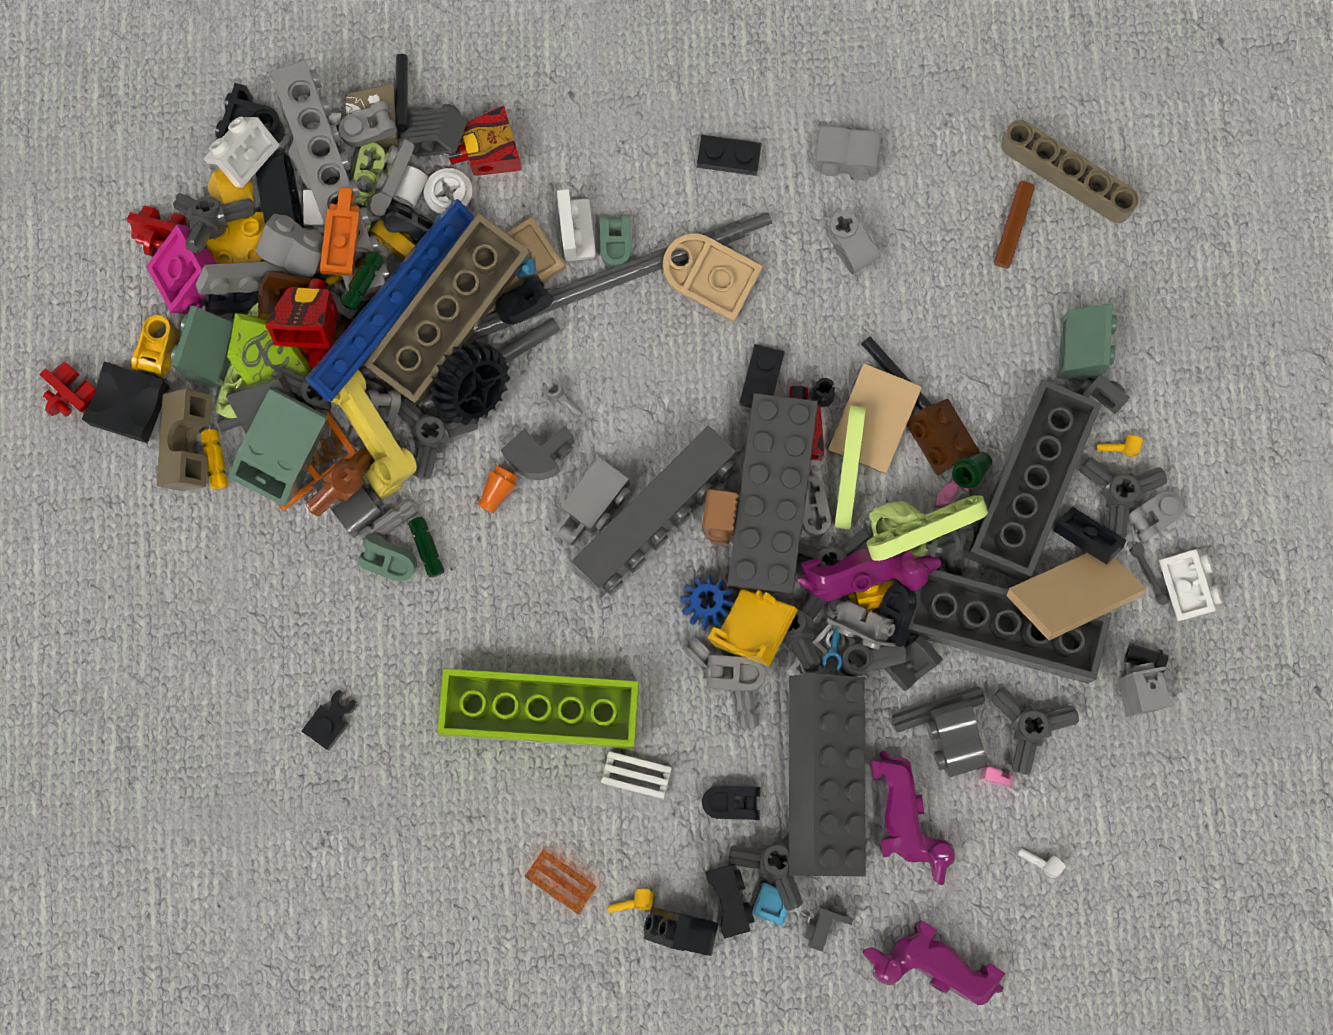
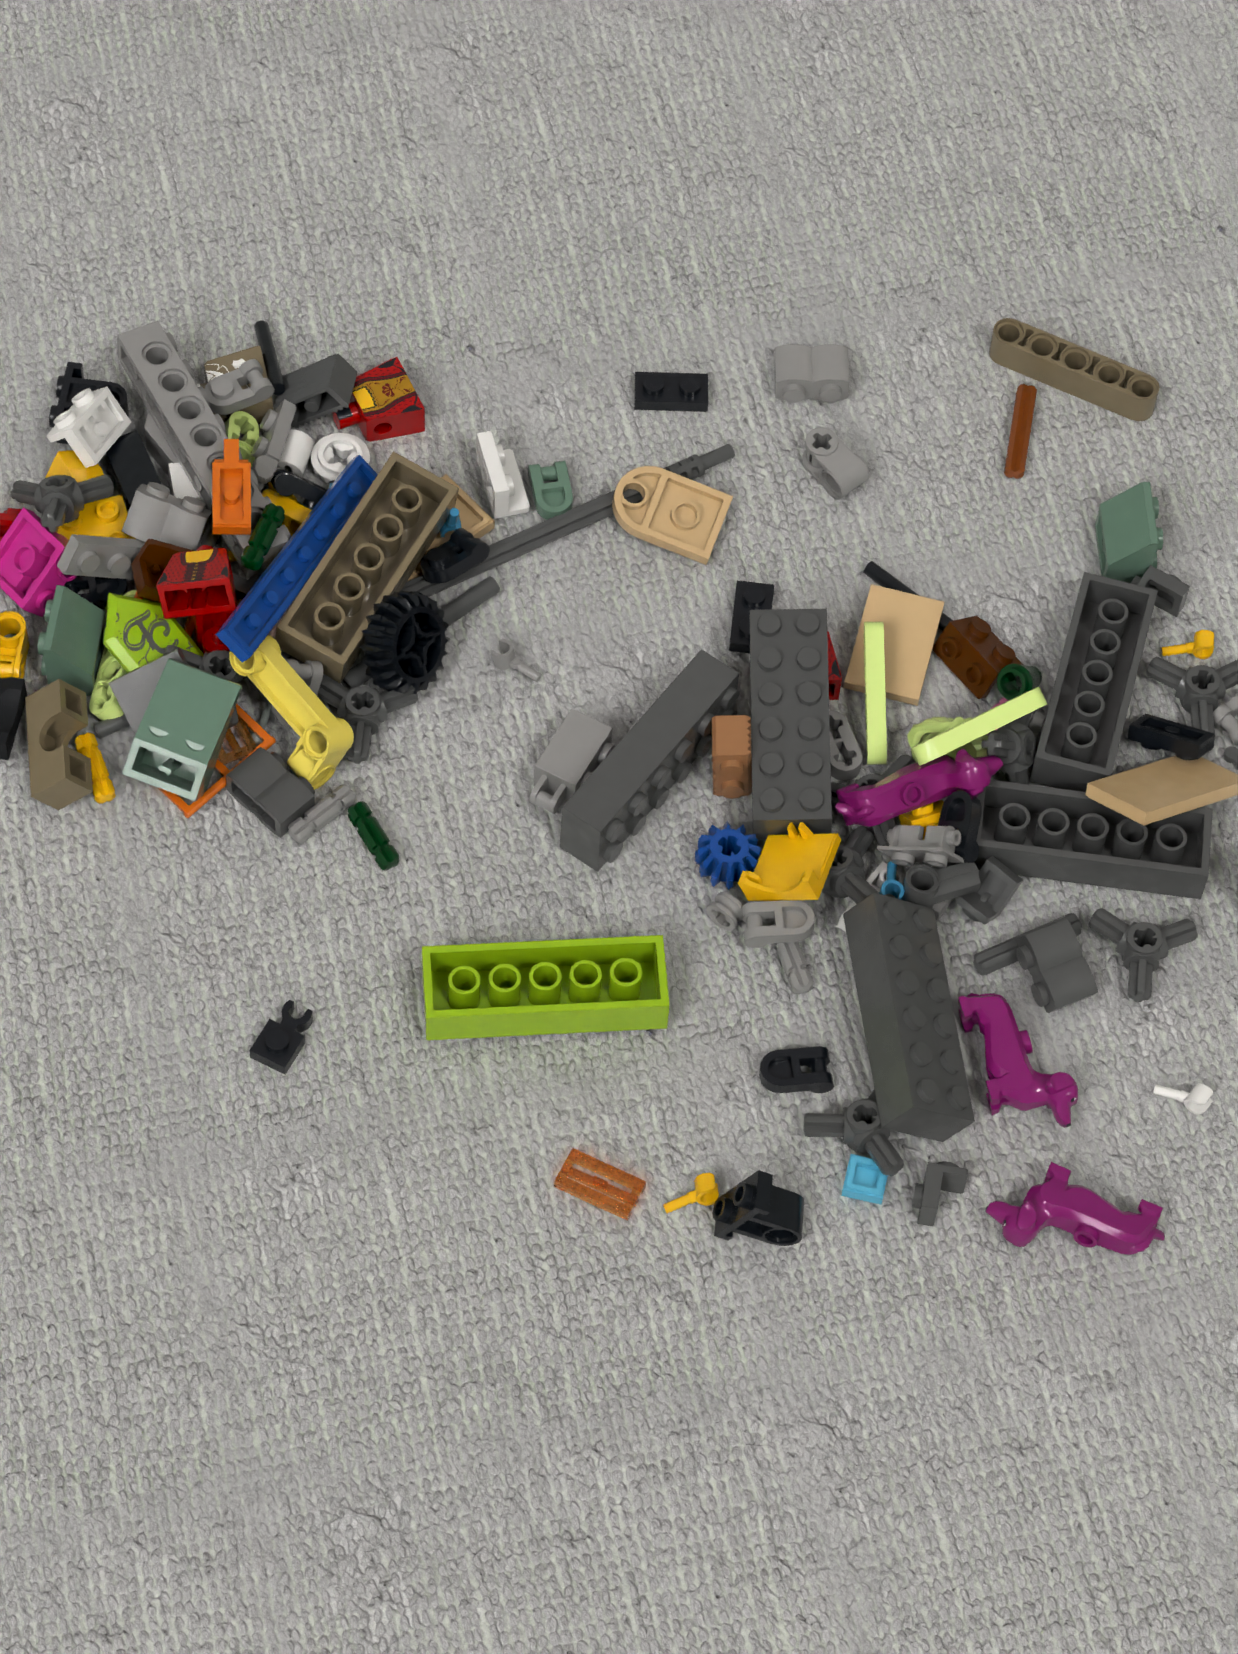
camera: 15 degrees left, 20 degrees down
(341, 482) = (265, 760): dark orange bush -> none
(398, 561) = (343, 852): sand green plate -> none
(497, 488) = (452, 760): orange cone -> none
(538, 461) = (493, 726): dark grey brick -> none
(638, 762) = (673, 1049): white tile -> none
(735, 913) = (814, 1164): black brick -> none
(825, 385) = (834, 613): black pin -> none
(996, 776) = (1110, 1008): bright pink tile -> none

